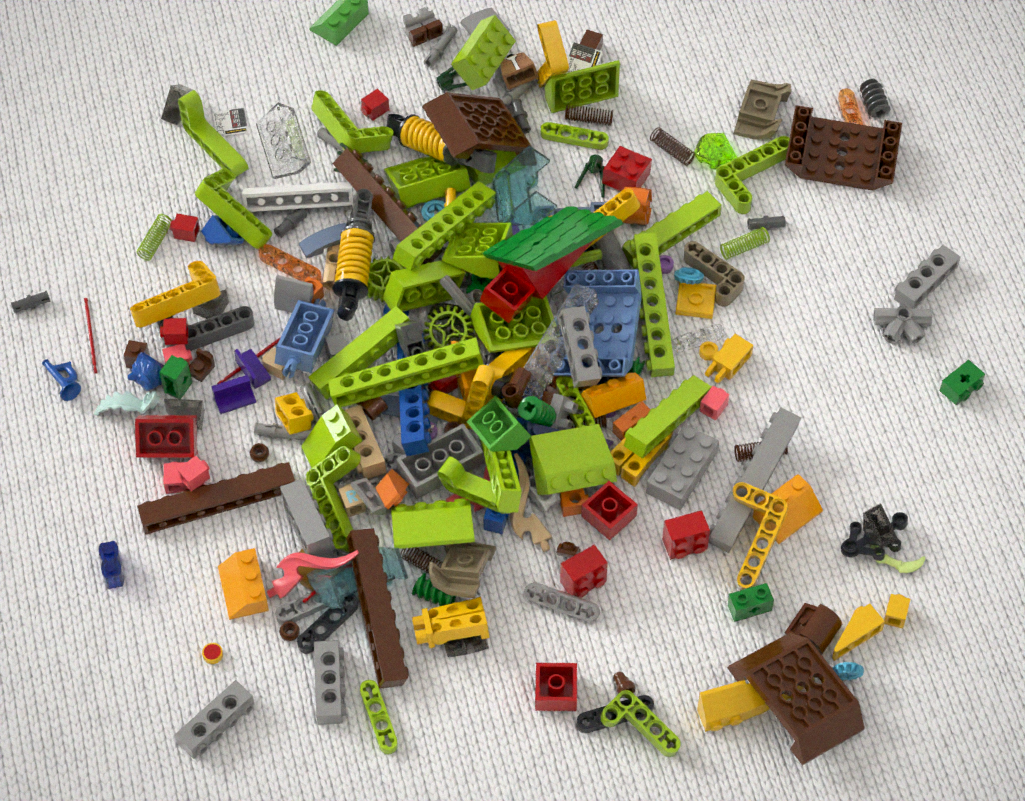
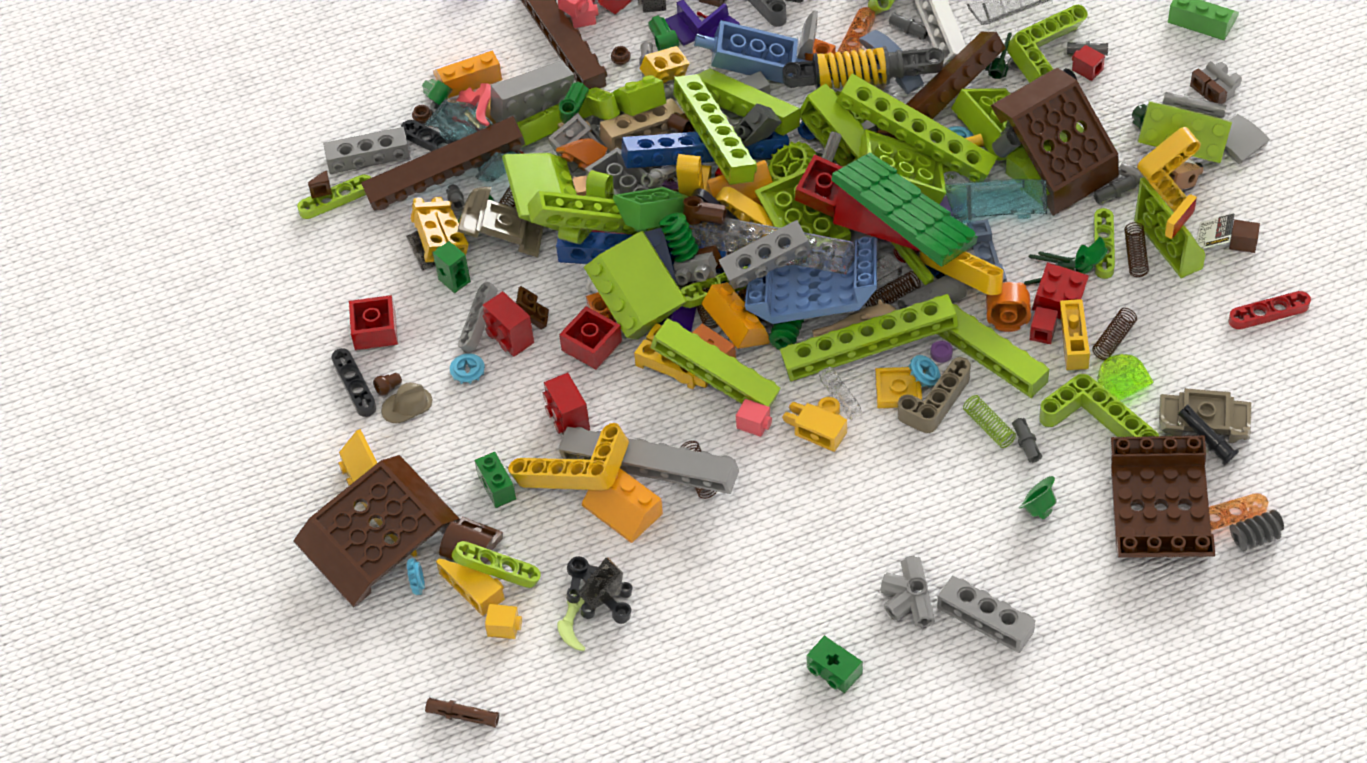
camera: 85 degrees right, 5 degrees down
(212, 653) = (393, 65): tile -> none
(233, 695) = (320, 77): light grey brick -> none
(249, 412) = (663, 35): none -> green piece
(273, 608) = (436, 90): none -> green piece
(333, 486) = (573, 101): none -> green piece
(355, 102) = (1072, 47): none -> dark grey pin
(372, 717) = (320, 185): none -> reddish brown slope
(414, 605) = (455, 197): none -> dark grey pin
(428, 496) = (580, 185): none -> light nougat slope
(446, 428) = (658, 176): none -> light grey pin
(505, 613) = (451, 267): none -> green brick
(532, 524) = (566, 277): tan piece -> none
(588, 142) = (1089, 256): none -> green plate
(606, 59) = (1180, 216): none -> yellow tile
(624, 612) = (458, 366): none -> medium azure gear
(643, 726) = (339, 399): lime beam -> none
(647, 672) = (406, 403): none -> dark tan piece
(659, 188) = (1043, 325): none -> red brick
(665, 48) = (1270, 311): none -> red beam
(677, 168) = (1074, 335): none -> yellow slope
(682, 467) = (660, 397): light grey brick -> none
(788, 106) = (1215, 443): none -> black pin
(824, 222) = (1040, 499): none -> green piece
(847, 604) = (495, 568): none -> lime beam
(978, 656) = (458, 711): none -> reddish brown pin

